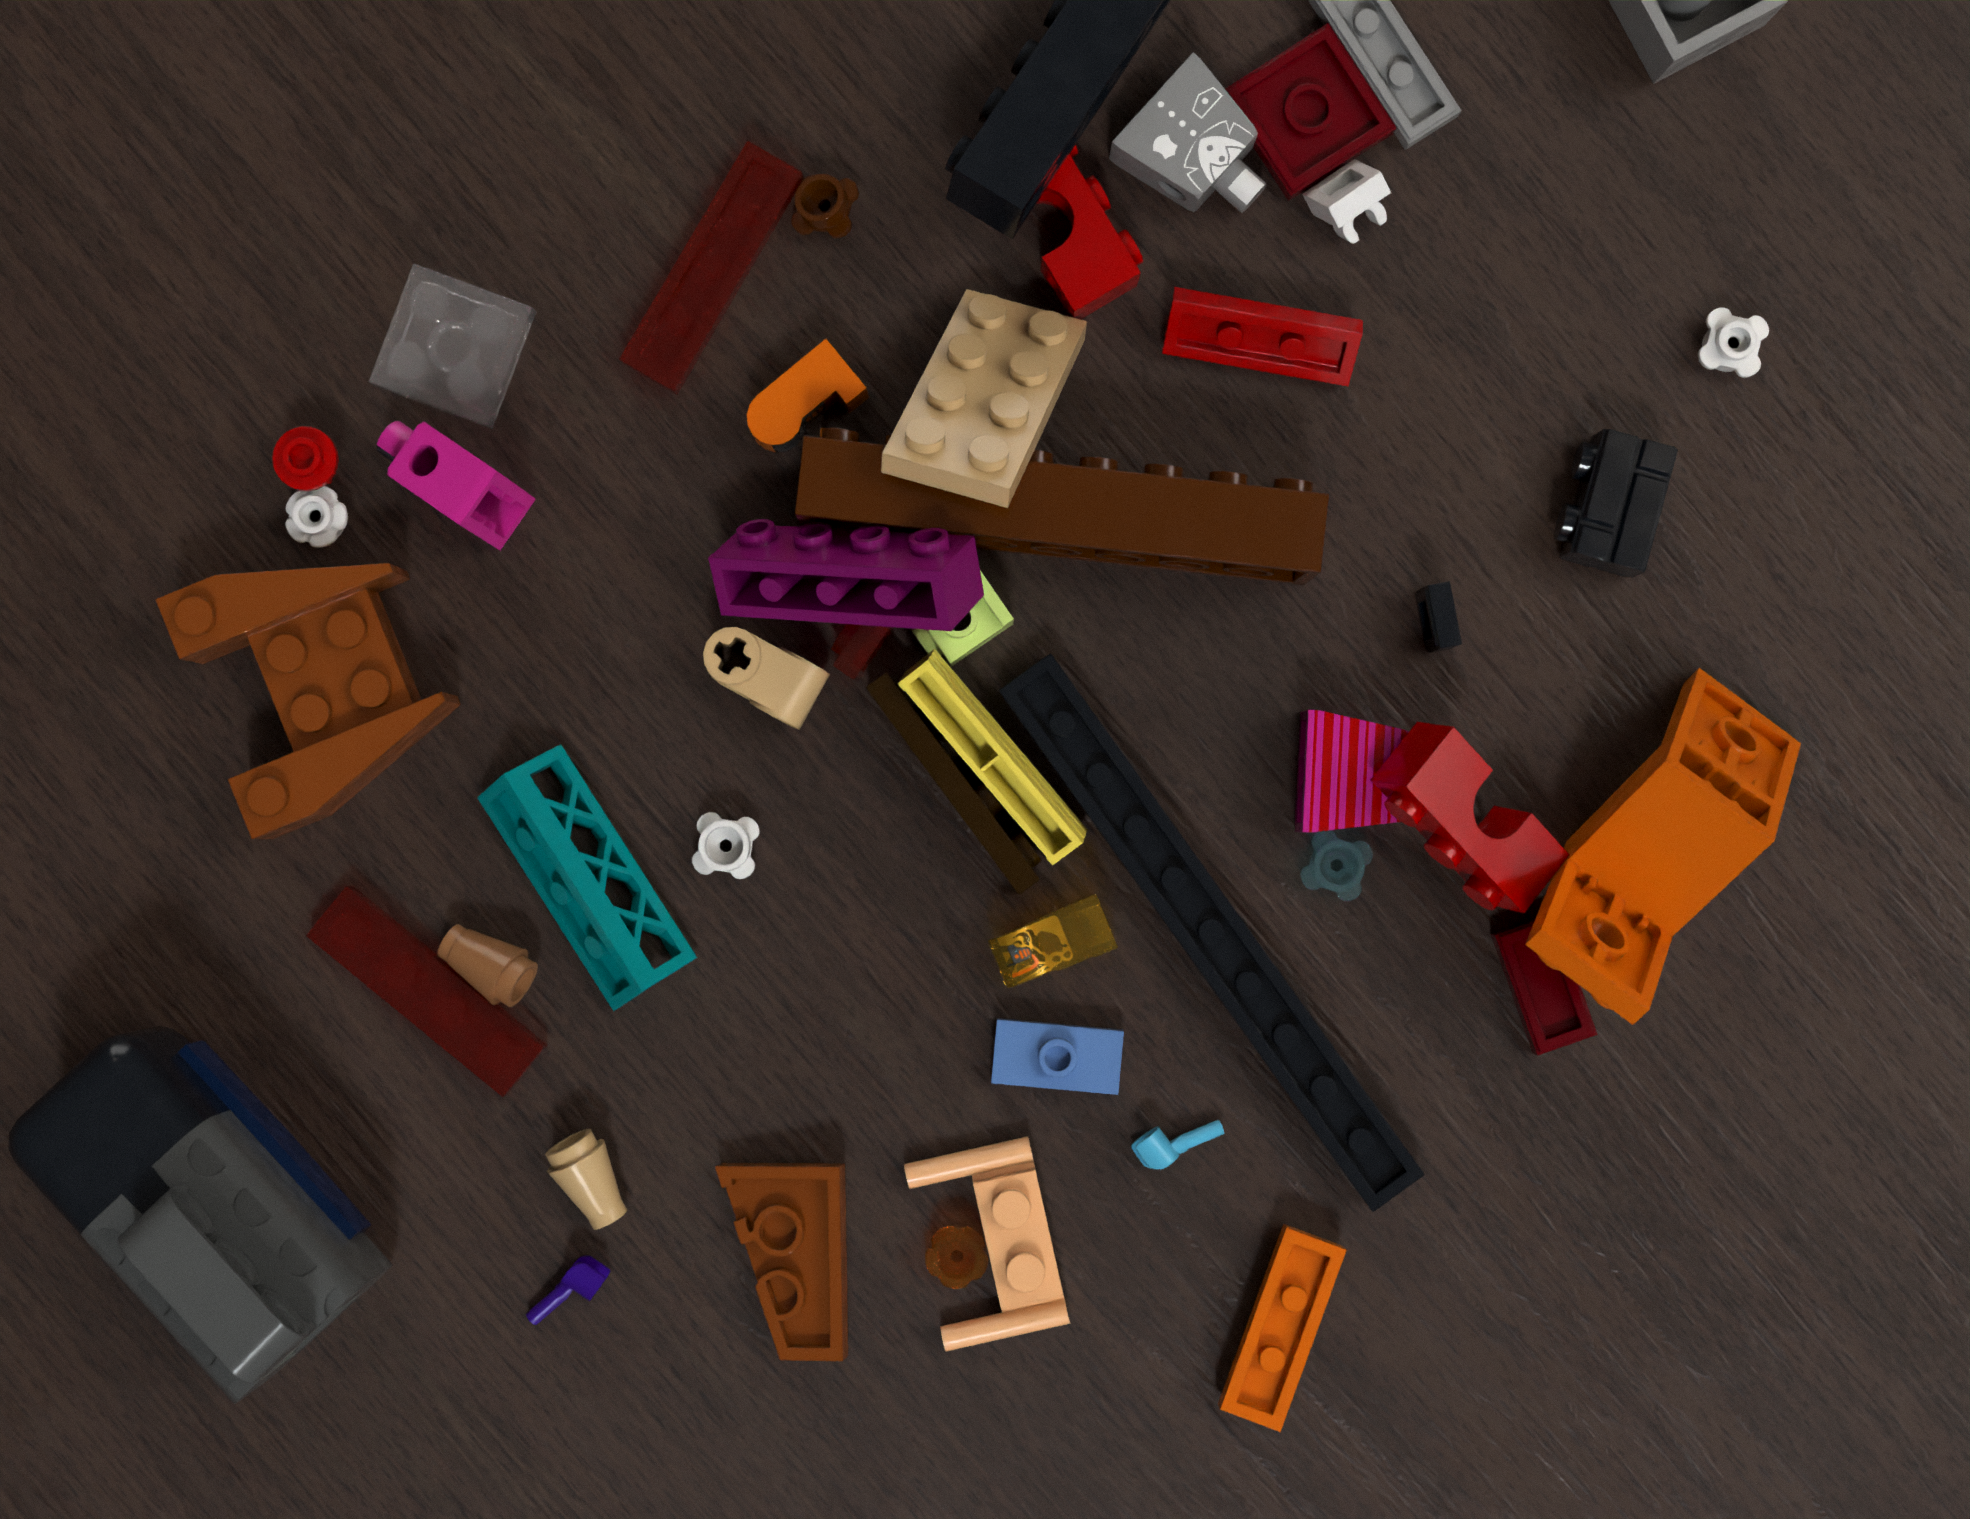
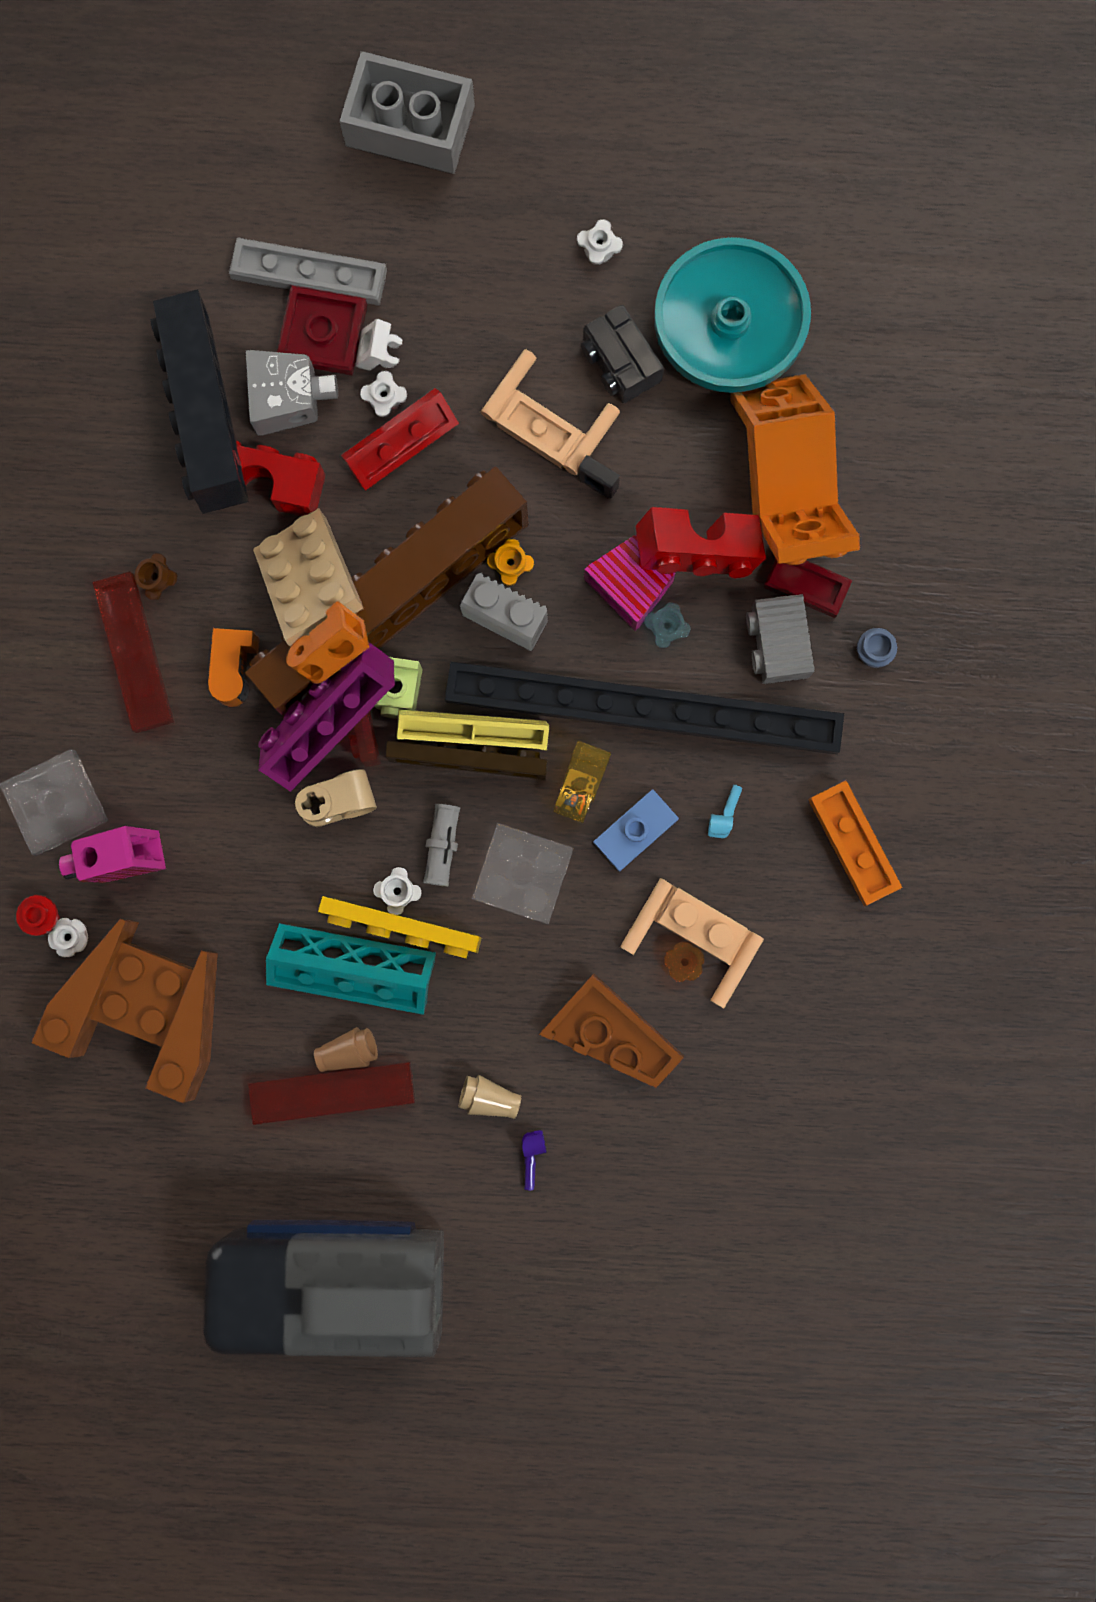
camera: 40 degrees left, 5 degrees down
(673, 867) = (382, 924): none -> yellow plate
(826, 846) = (441, 845): none -> light grey pin
(882, 974) = (522, 873): none -> clear plate
(926, 511) = (329, 645): none -> orange leg
(1169, 660) = (504, 611): none -> light grey brick
(1251, 595) = (510, 550): none -> light orange plate
(1286, 276) = (384, 405): none -> white plate
(1434, 487) = (540, 427): none -> light nougat plate
(1444, 1016) = (781, 639): none -> light grey brick
(1542, 1138) = (876, 647): none -> sand blue plate
(1790, 591) = (732, 314): none -> teal dish

